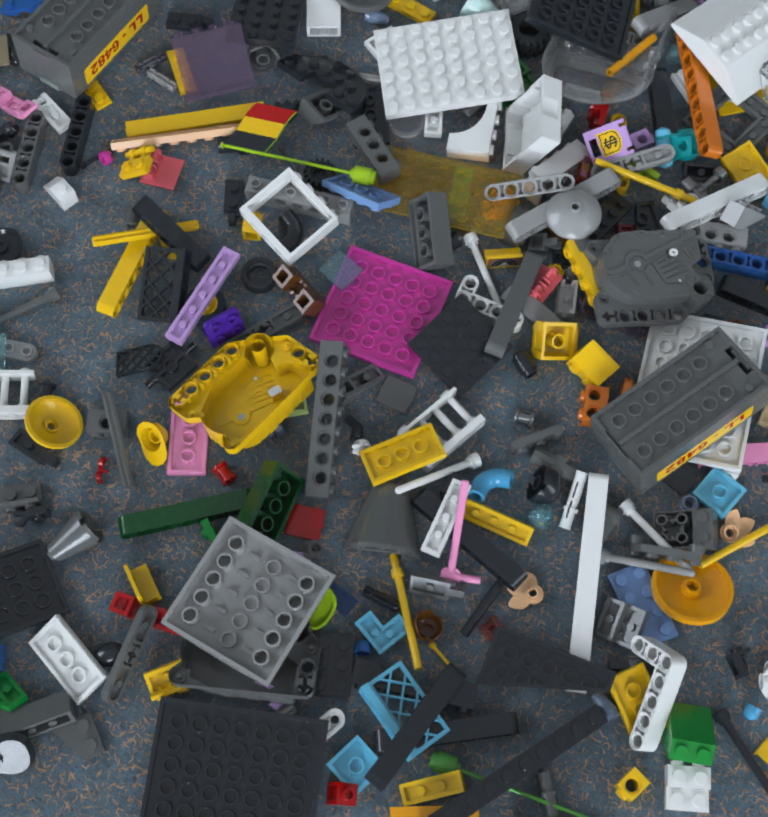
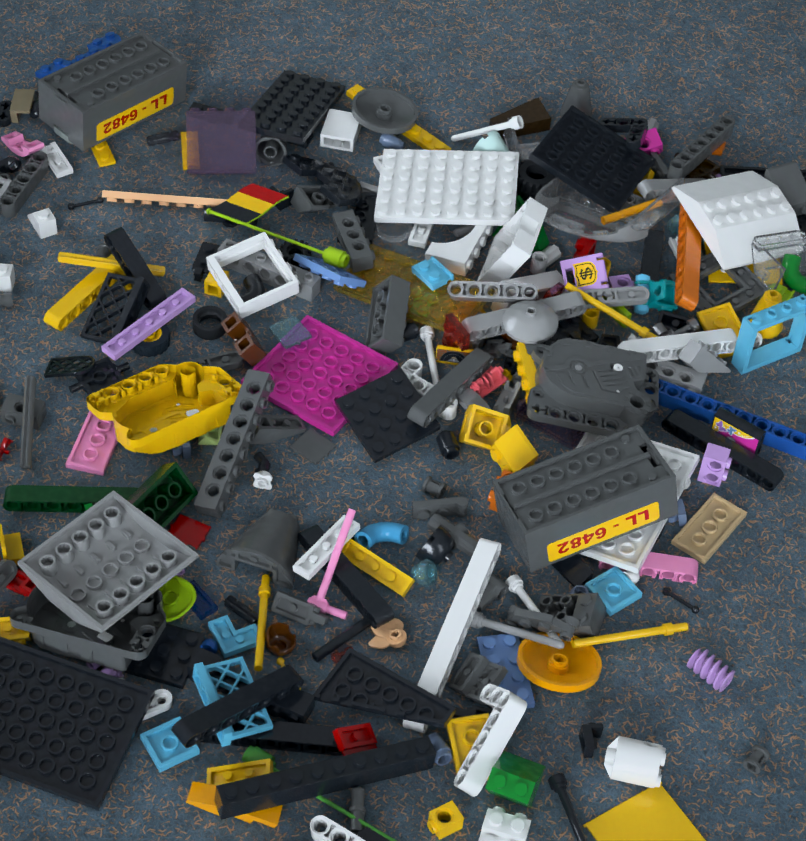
camera: 10 degrees right, 20 degrees down
(77, 135) = (73, 180): black beam -> none
(105, 157) = (93, 203): dark pink hinge -> none
(138, 163) = (122, 210): yellow plate -> none
(153, 442) = (61, 433): yellow piece -> none
(162, 79) = (169, 153): light grey axle -> none
(164, 171) = (144, 223): coral hinge -> none
(188, 120) = (179, 188): yellow tile -> none
(223, 327) = (160, 350): dark purple bracket -> none
(224, 473) = (121, 474): red bush -> none
(341, 793) = (147, 760): red bracket -> none
(402, 454) = (300, 488): yellow plate -> none
(459, 435) = (351, 496): white fence -> none
(461, 172) = (432, 273): none -> medium azure plate
(472, 461) = (370, 514): white piece -> none
(502, 242) = (455, 334): none -> clear red plate
(529, 723) = (355, 738): none -> red plate
(573, 500) = (456, 571): white pin -> none
(737, 526) = (623, 623): light nougat plate -> none
(751, 712) = (591, 785): dark azure hinge -> none

